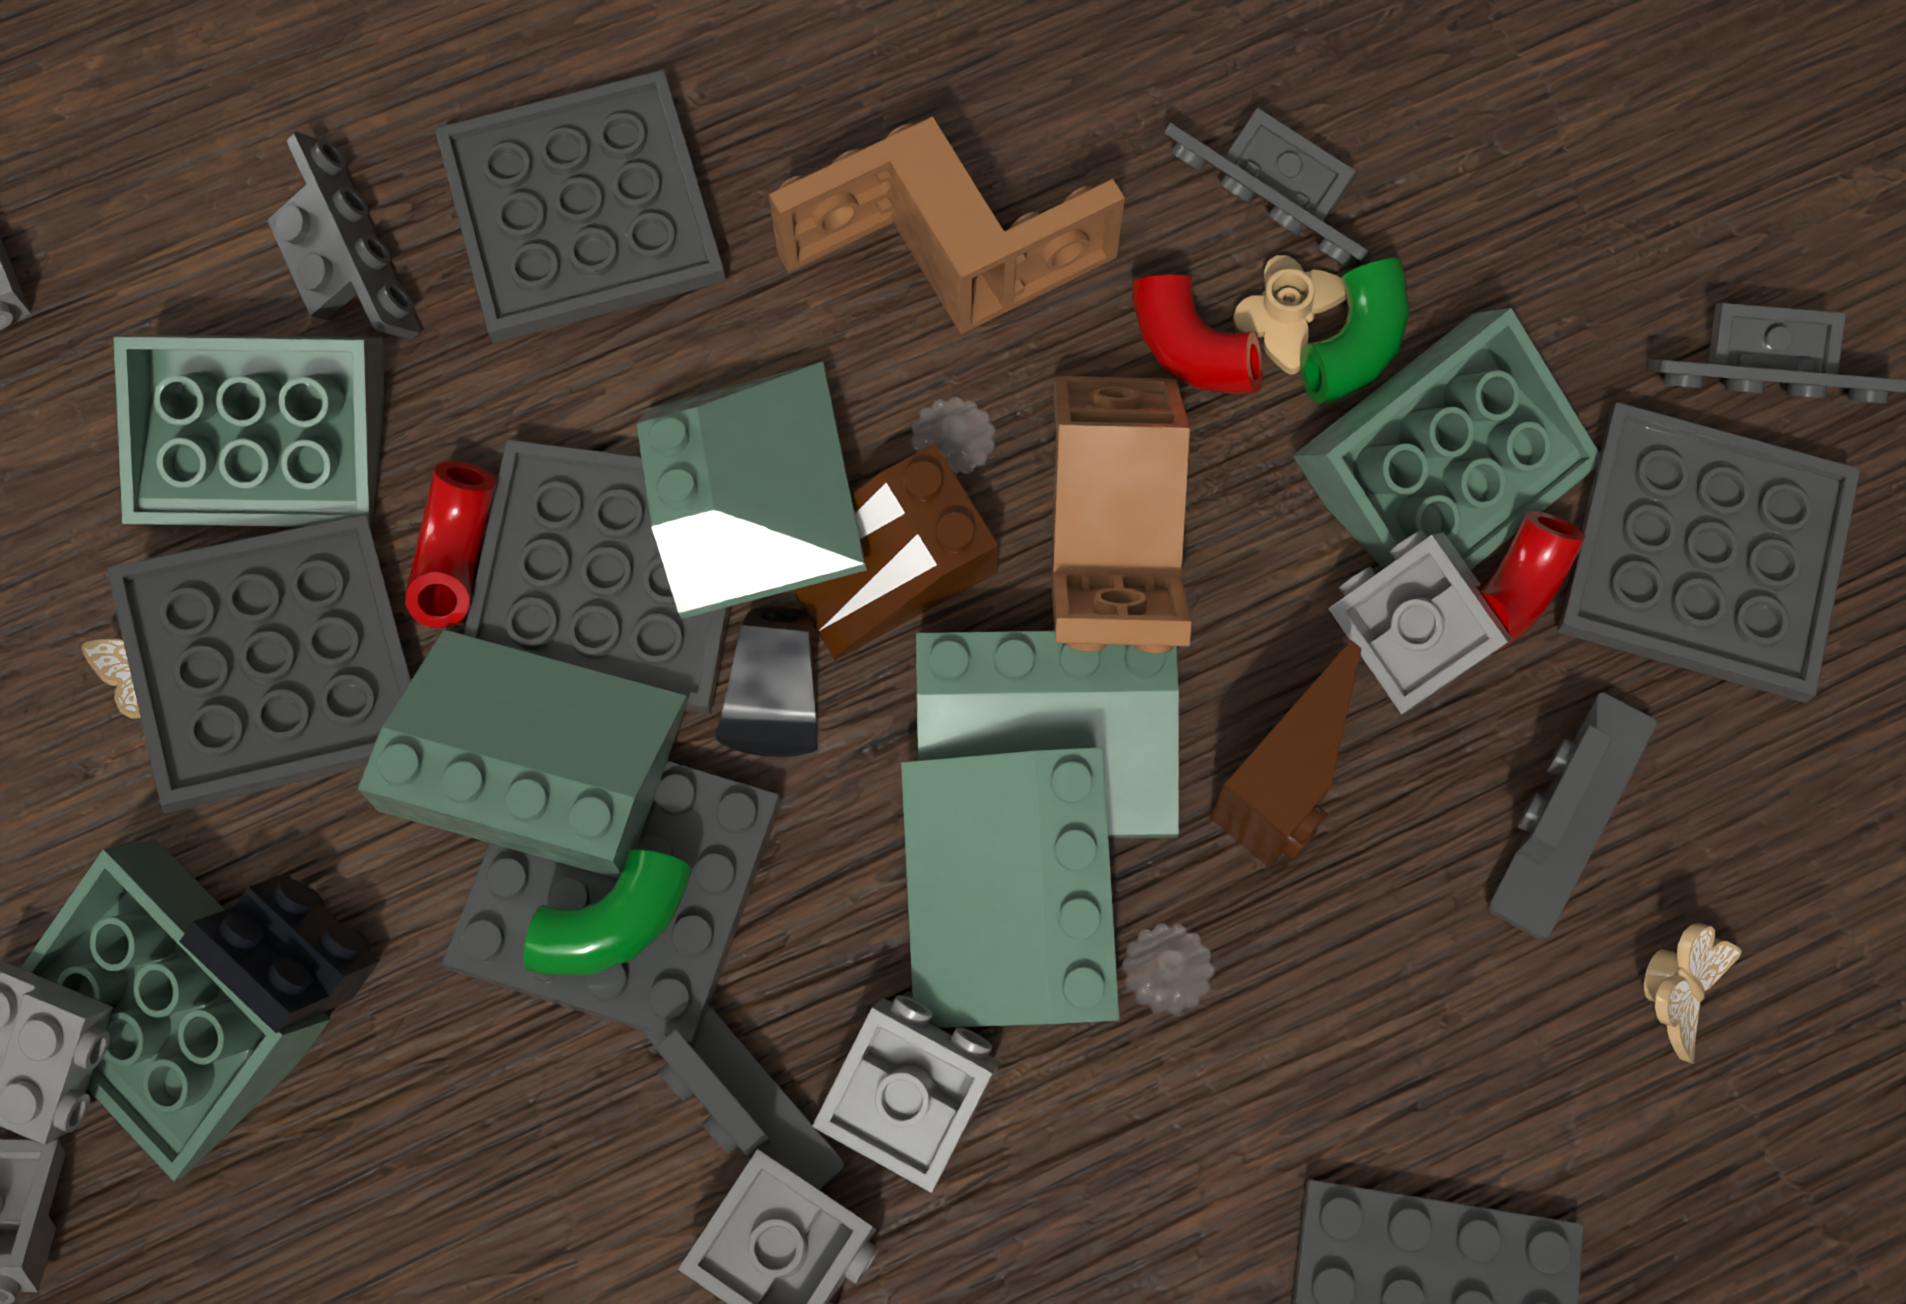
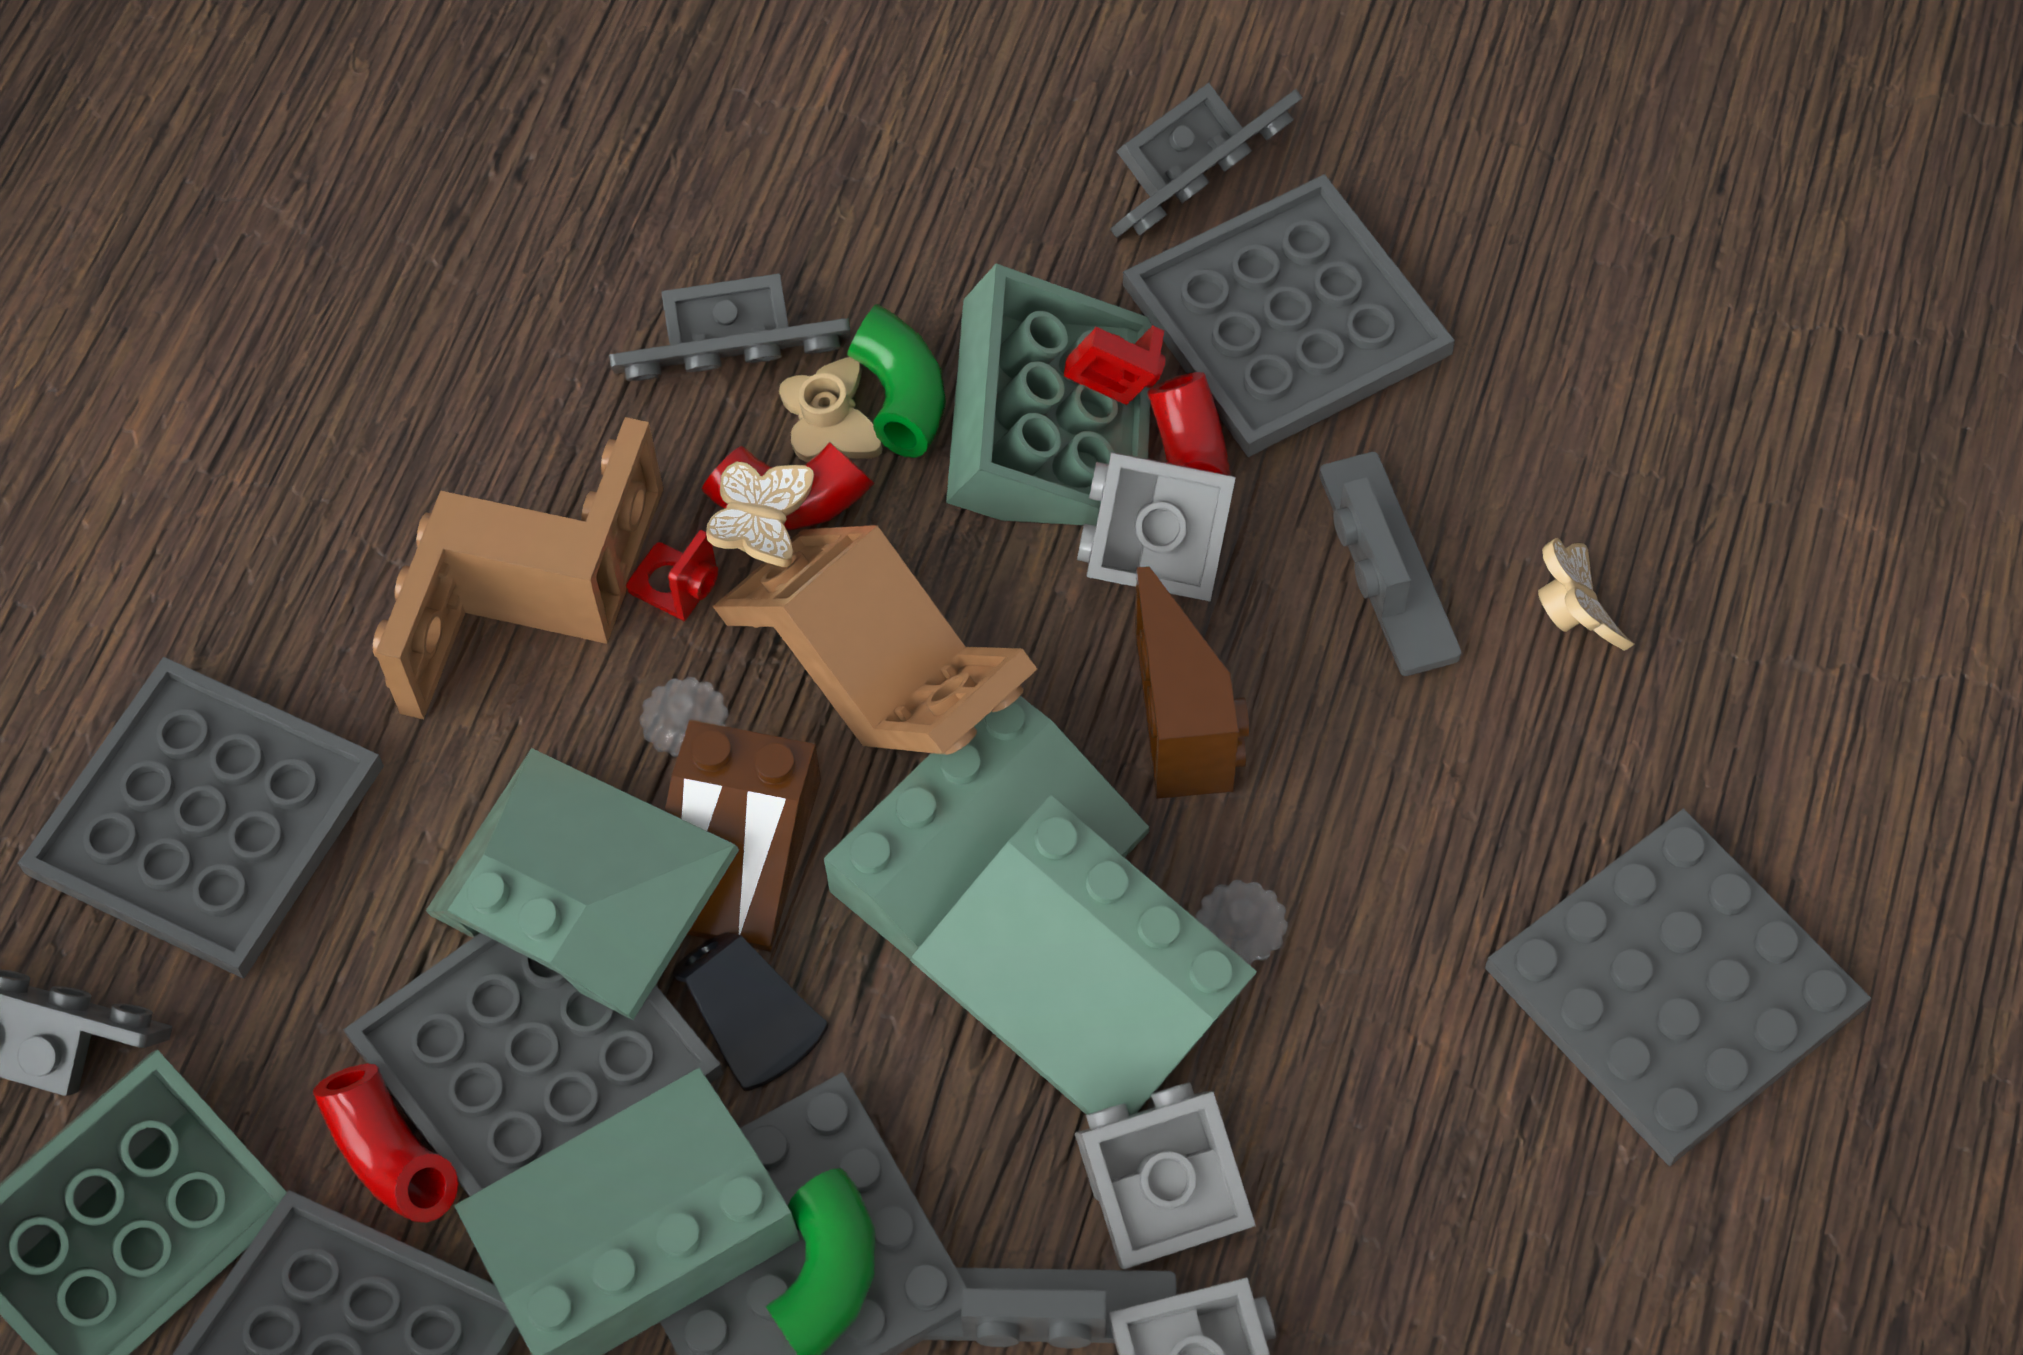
camera: 45 degrees left, 10 degrees down
(1055, 339) = (689, 579): none -> red bracket
(1142, 335) = (759, 510): none -> tan animal
(1522, 472) = (1115, 365): none -> red bracket

